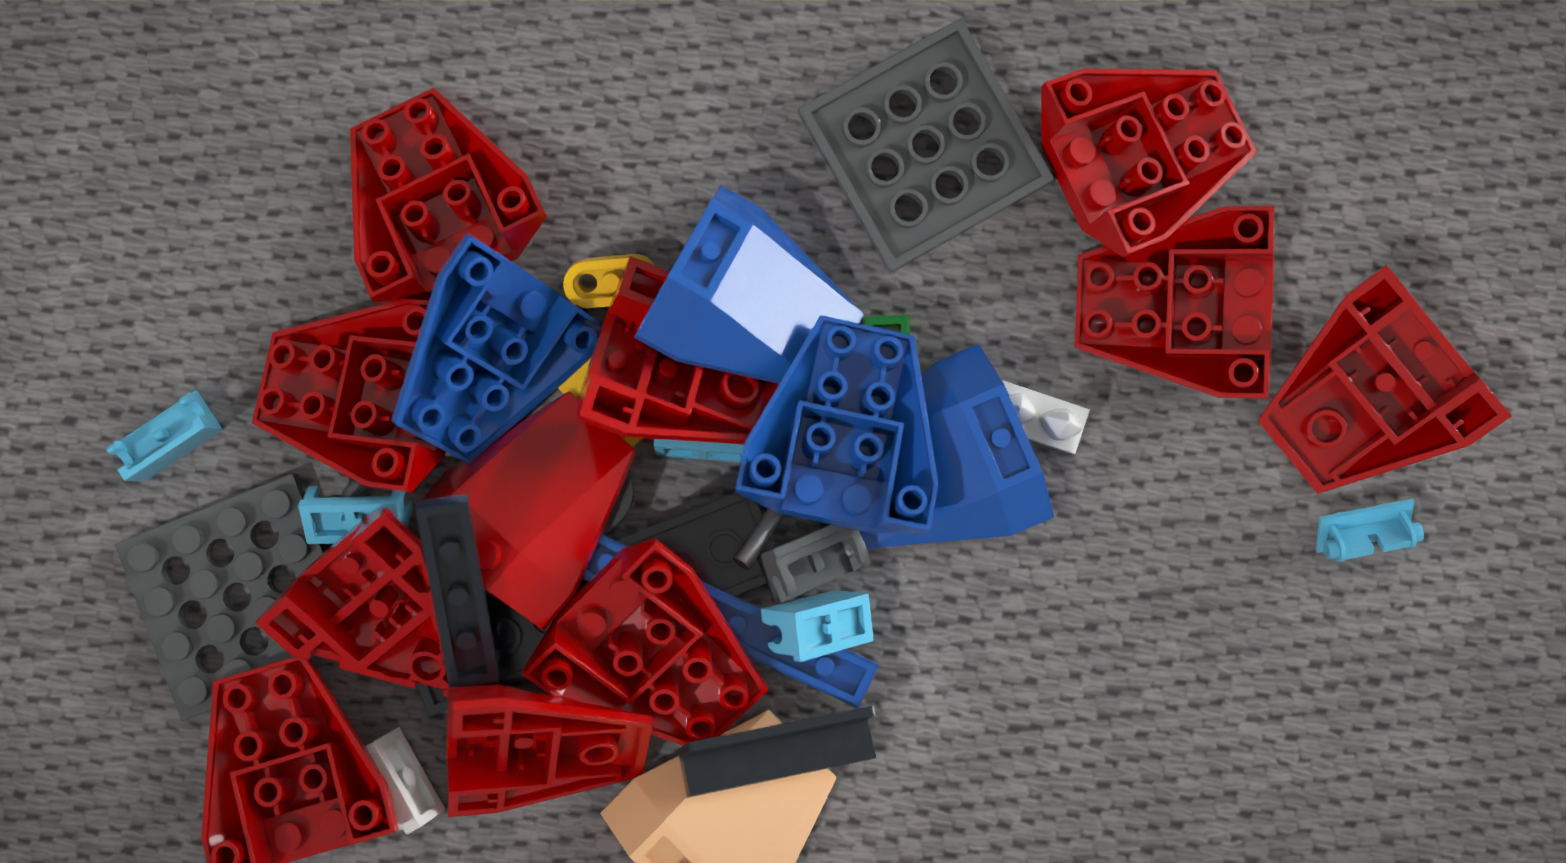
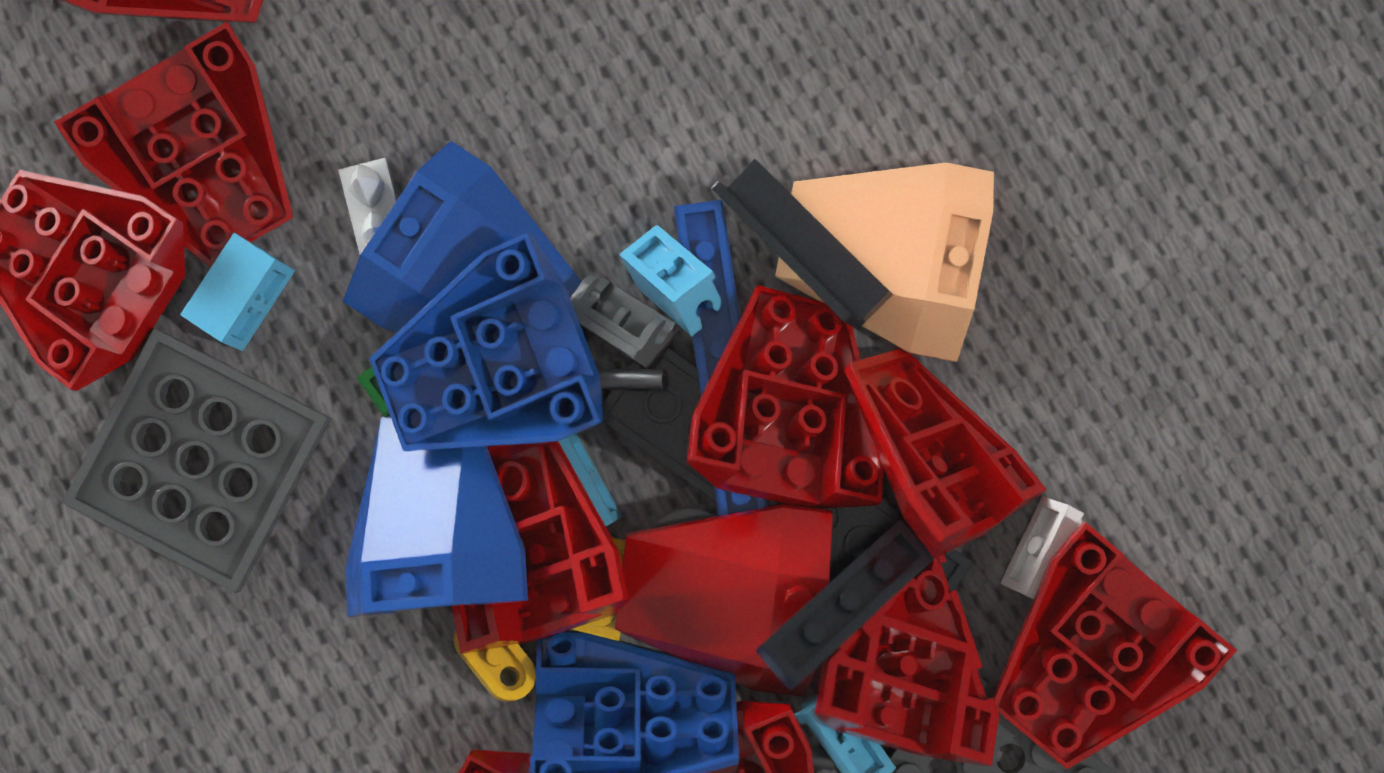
camera: 120 degrees left, 0 degrees up
(1040, 263) = (237, 292): none -> medium azure hinge

